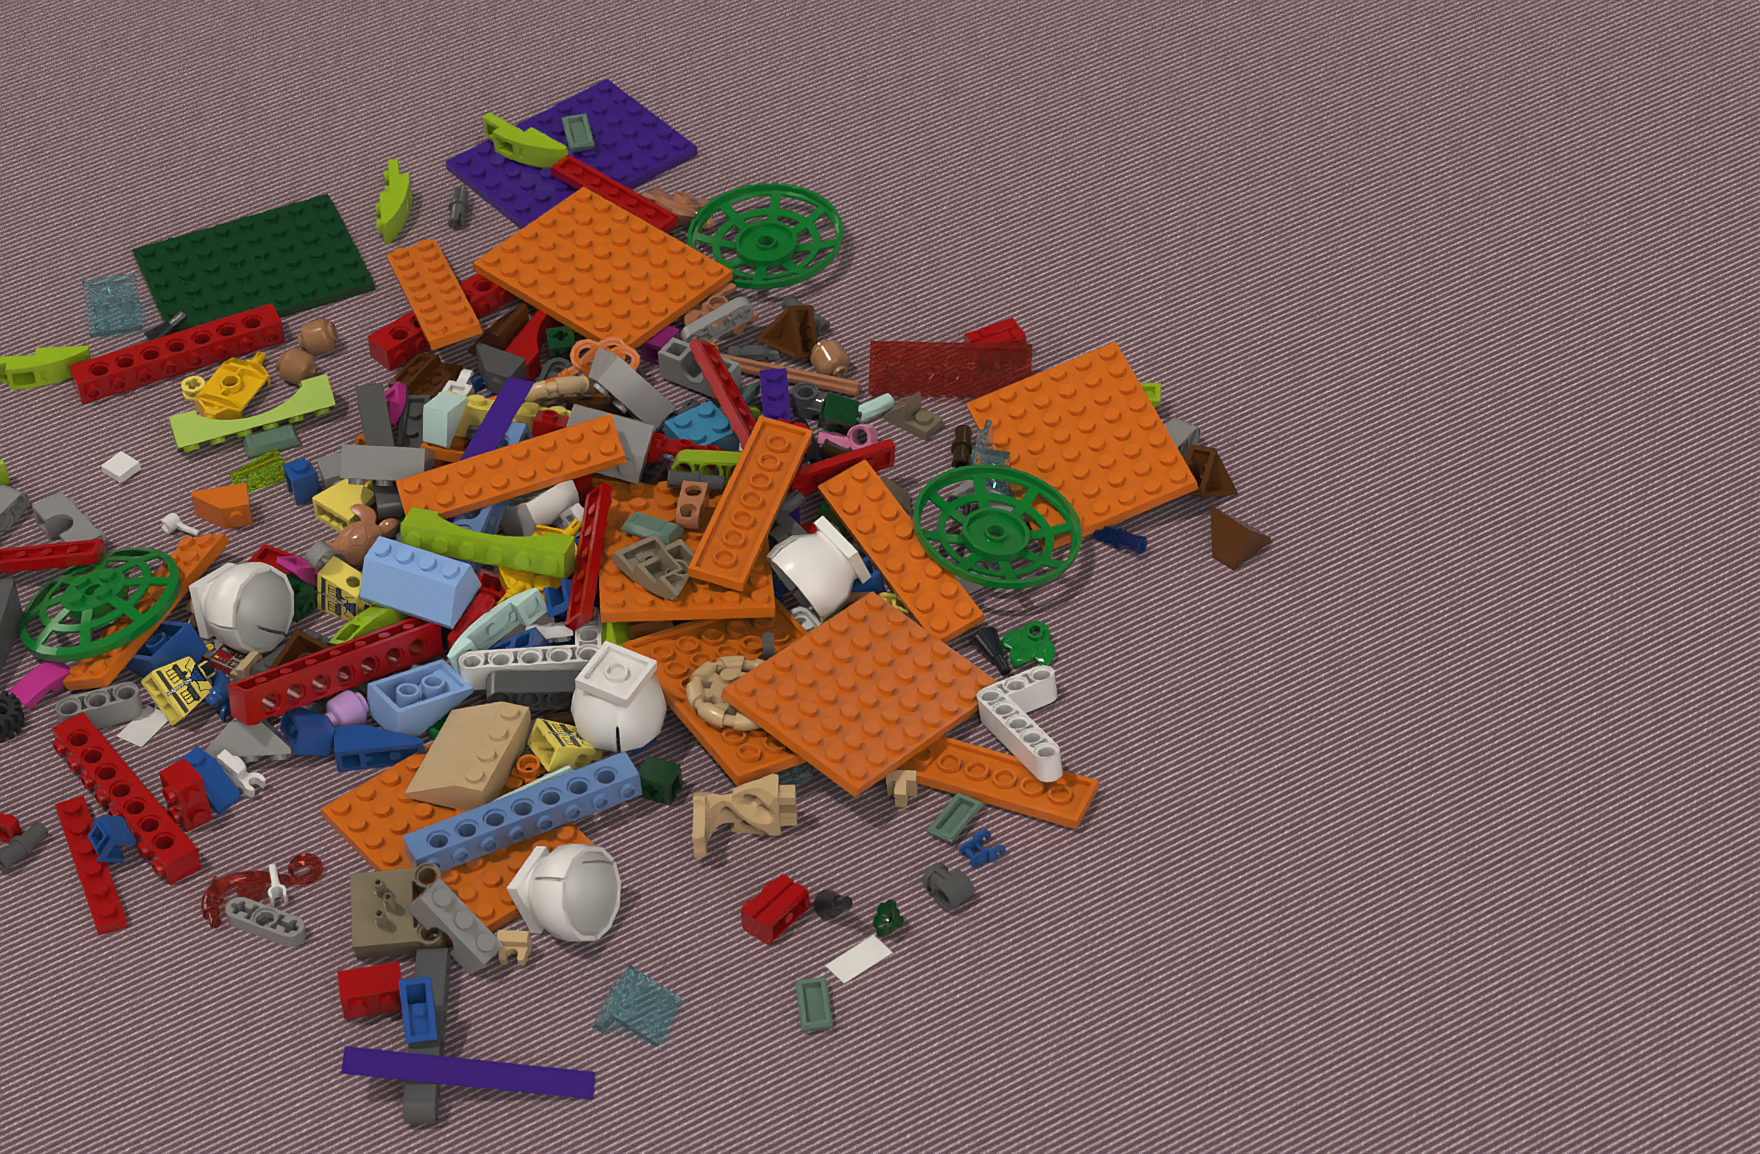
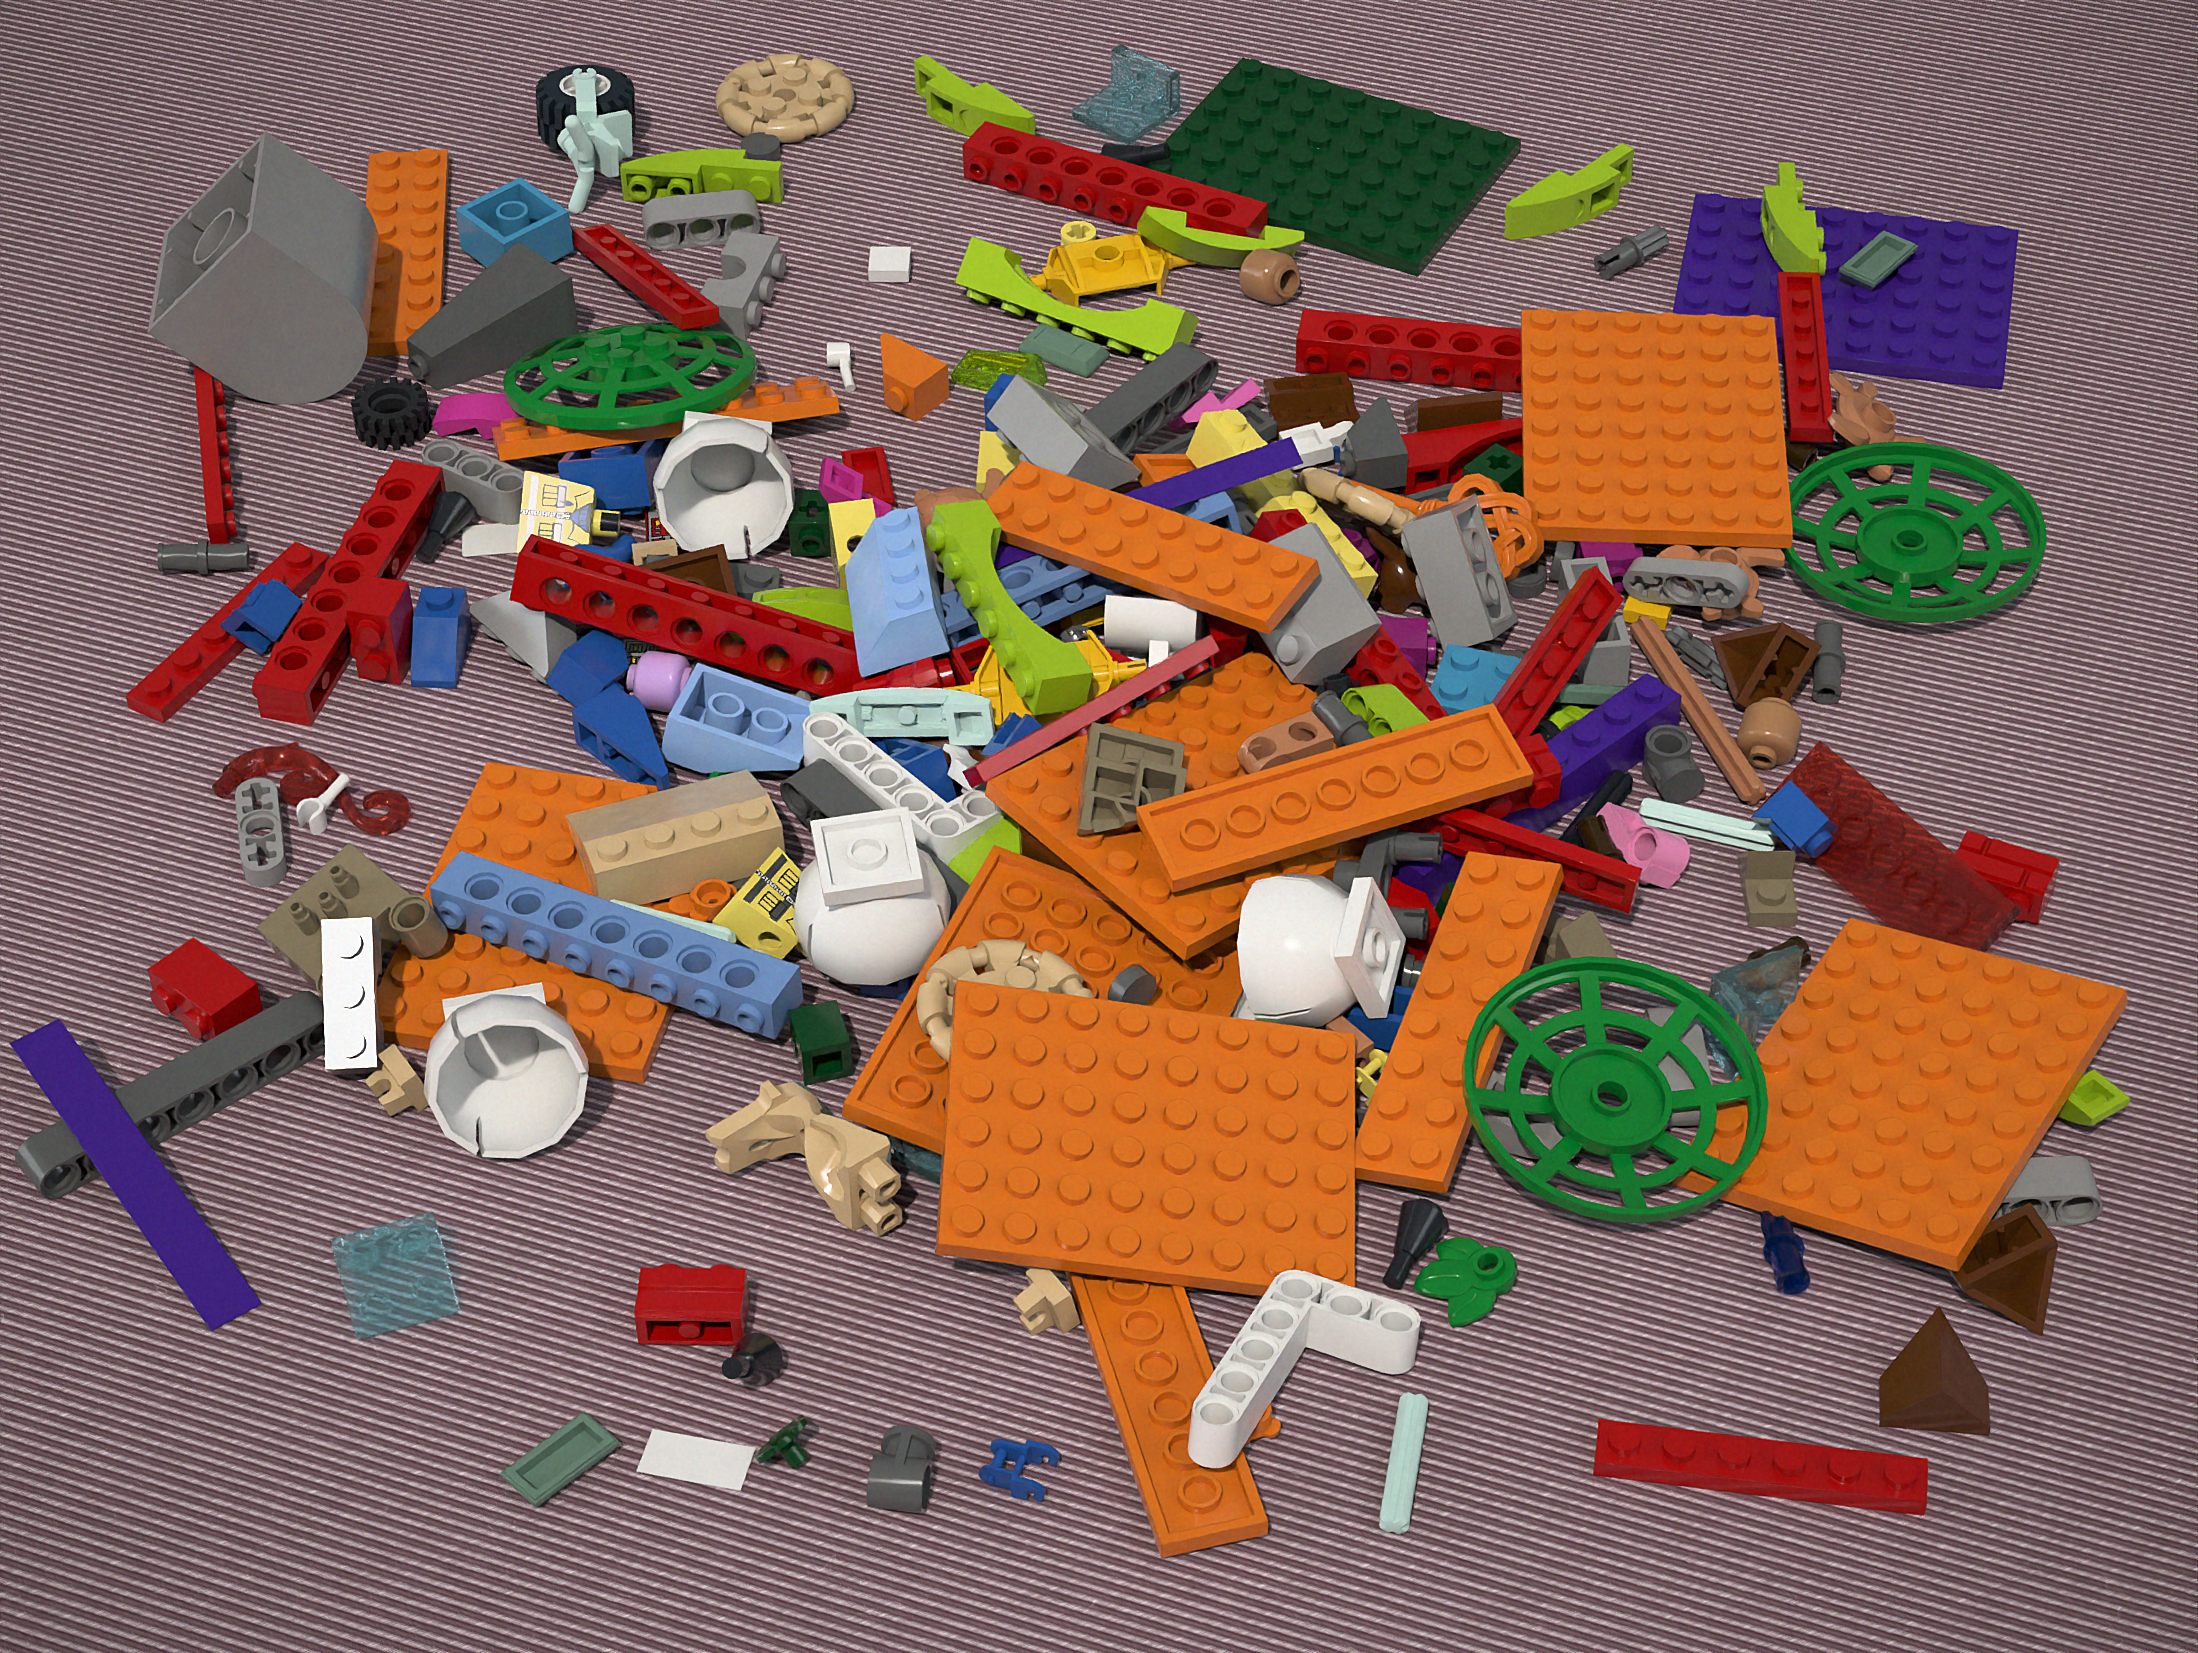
camera: 50 degrees right, 0 degrees up
(113, 732) = (449, 515): none -> black cone
(236, 771) = (475, 648): white plate -> none
(254, 347) = (1169, 231): none -> lime slope
(296, 366) = (1199, 289): medium nougat head -> none
(320, 554) = (853, 482): light grey beam -> none
(418, 1009) = (173, 1039): blue slope -> none
(434, 294) = (1432, 314): orange plate -> none
(442, 418) = (1186, 434): light aqua slope -> none
(645, 357) = (1563, 551): none -> dark grey tile
(646, 525) = (1207, 741): sand green tile -> none
(839, 414) = (1662, 799): dark green brick -> none
(902, 379) = (1797, 821): none -> blue window
(954, 818) = (1050, 1401): sand green tile -> none
(1106, 723) = (1403, 1463): none -> light aqua axle
(1219, 617) = (1761, 1467): none -> red plate

